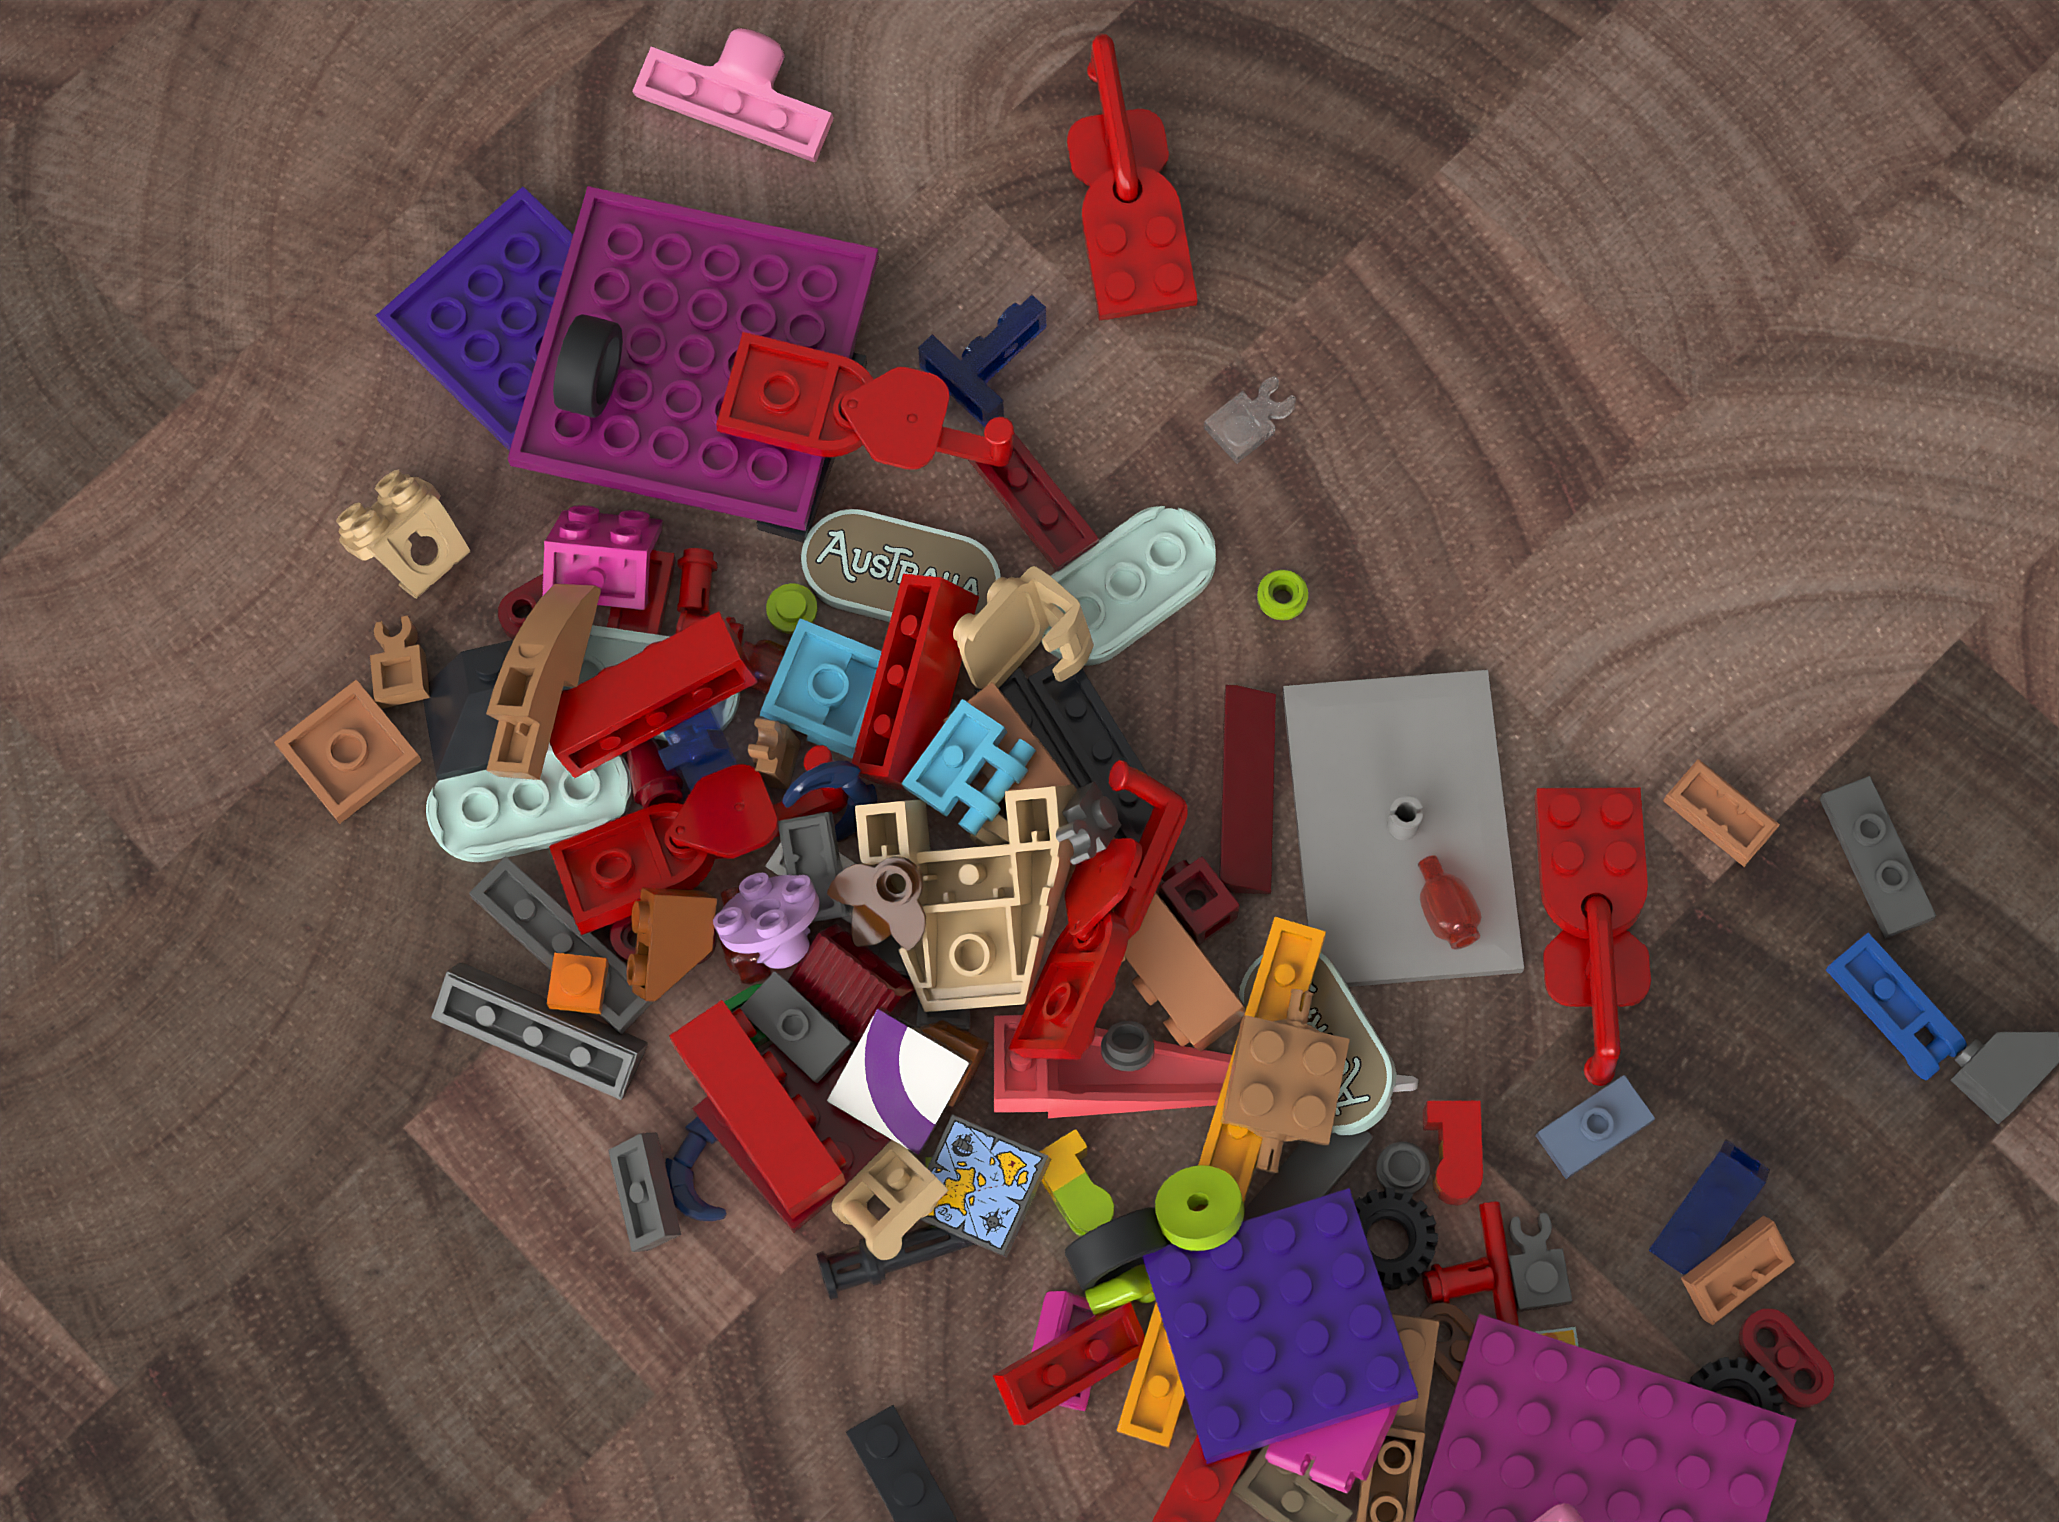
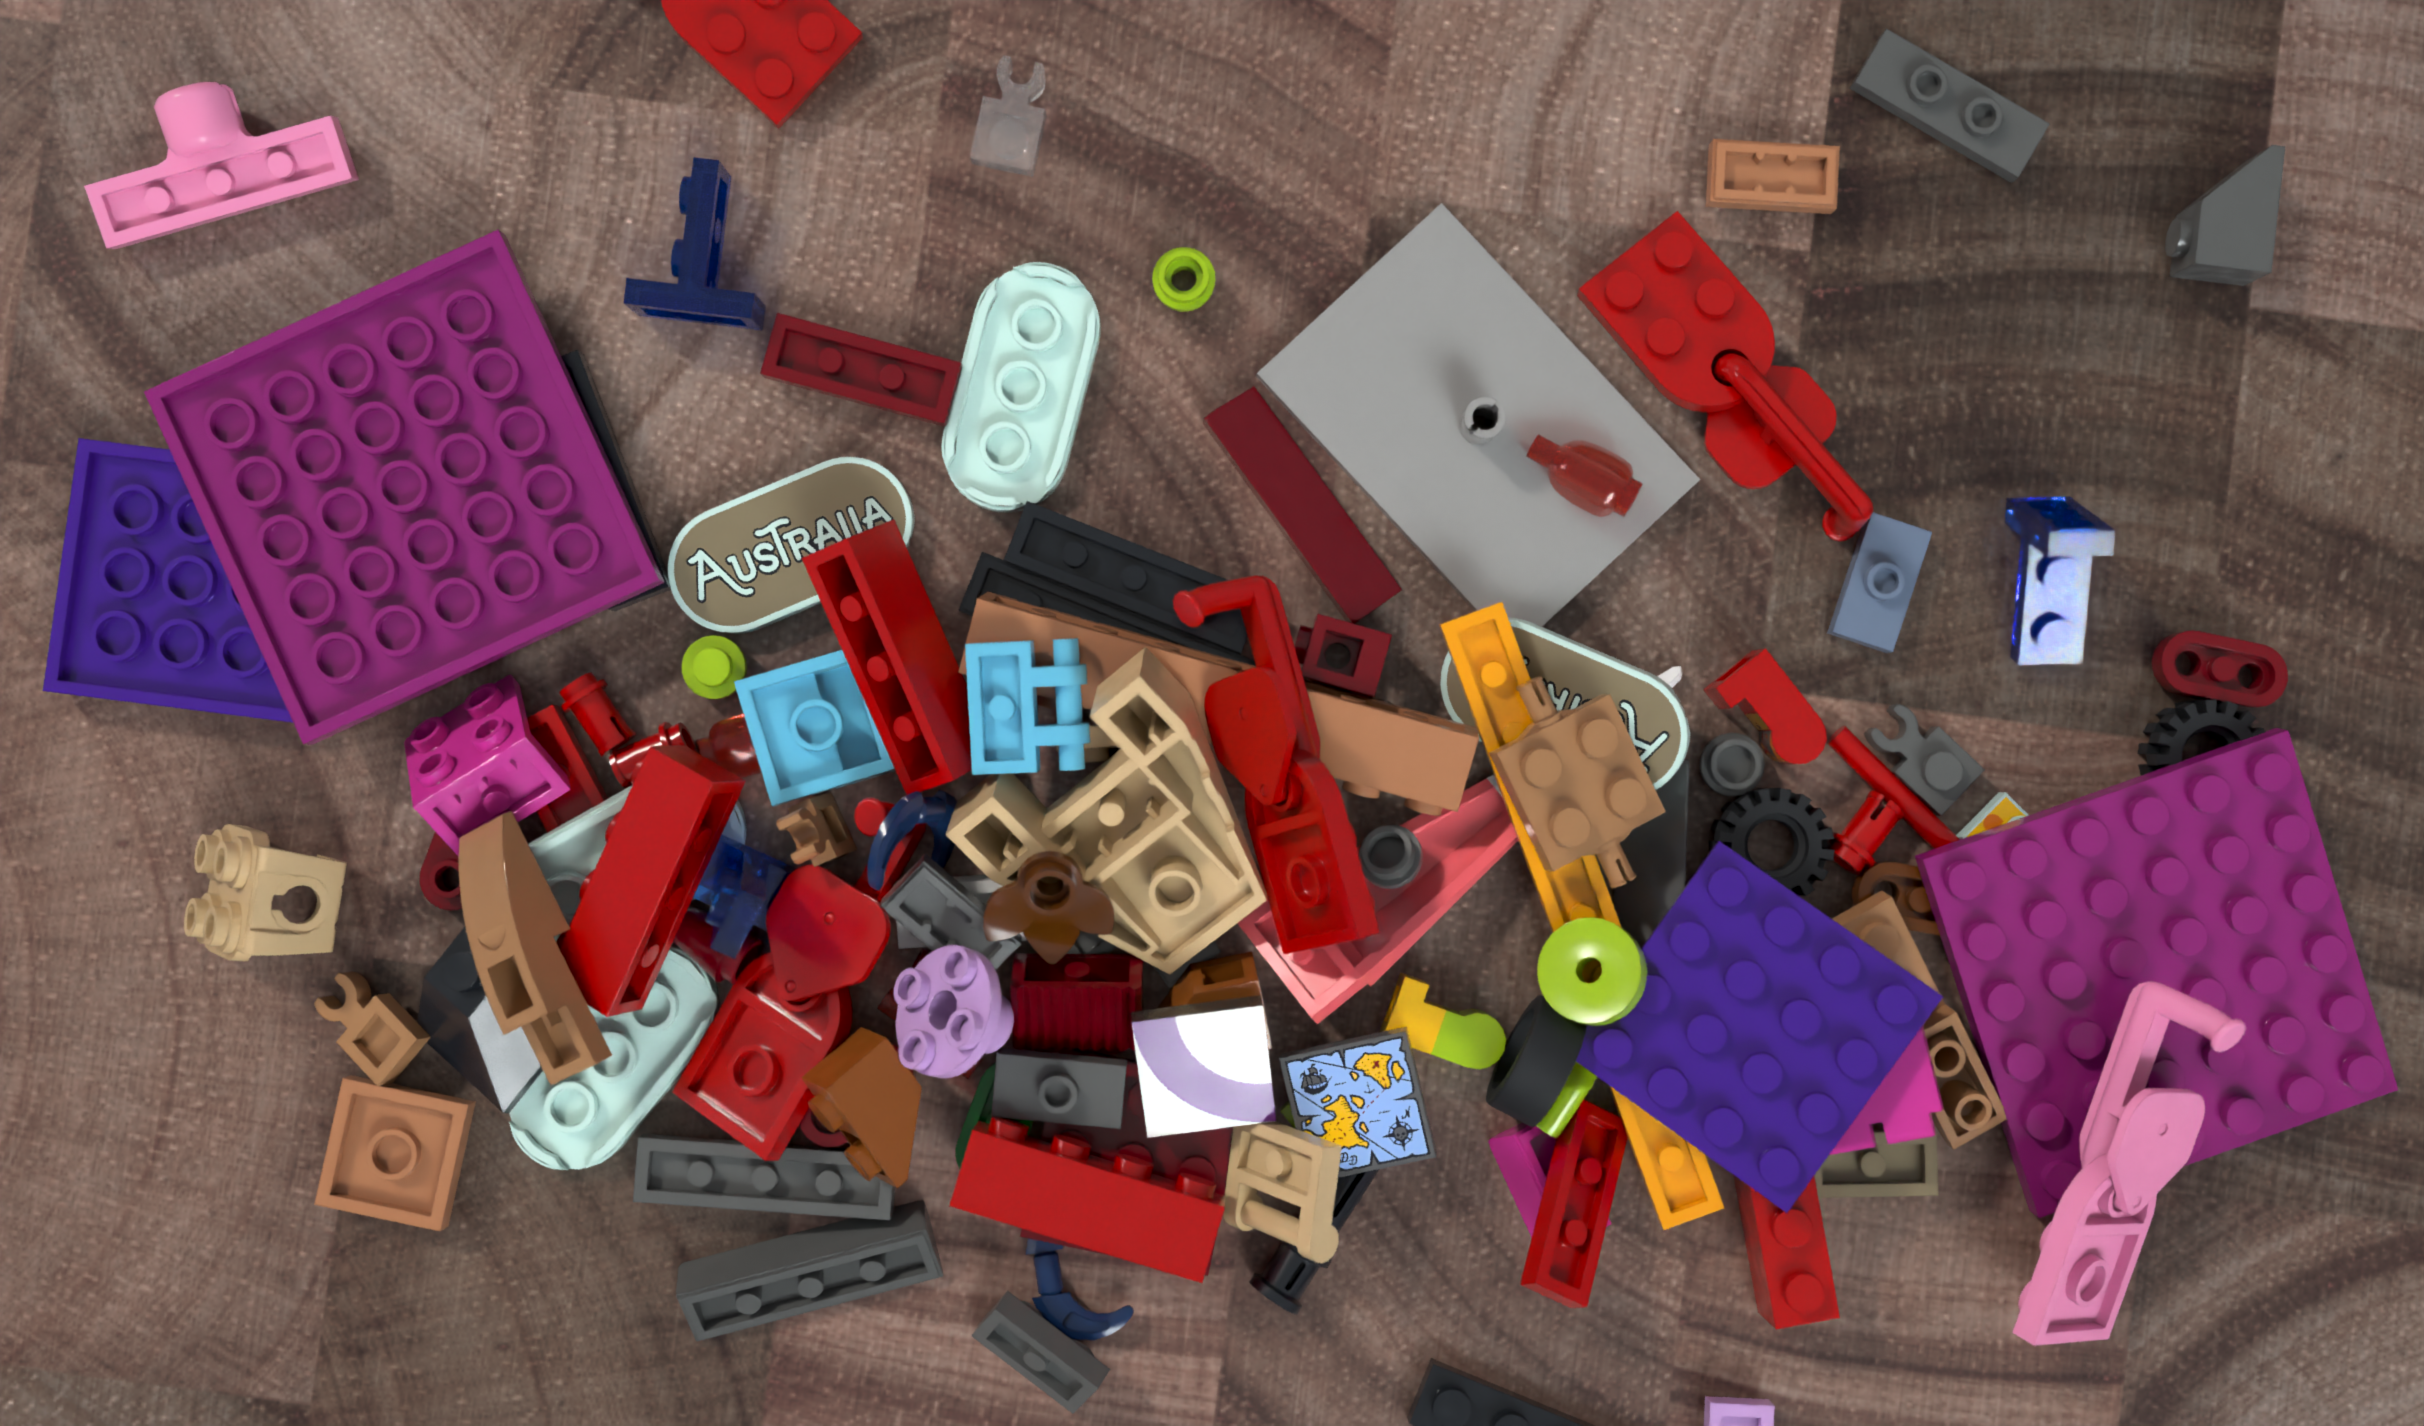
camera: 45 degrees left, 15 degrees up
(577, 983) = (813, 1210): orange plate -> none
(587, 365) = (302, 593): black tyre -> none
(794, 400) = (541, 451): red plate -> none
(1014, 624) = (951, 522): tan piece -> none
(1090, 824) = (1198, 677): dark grey plate -> none
(1738, 1270) = (2117, 621): nougat plate -> none
(1896, 1005) = (2074, 243): blue plate -> none

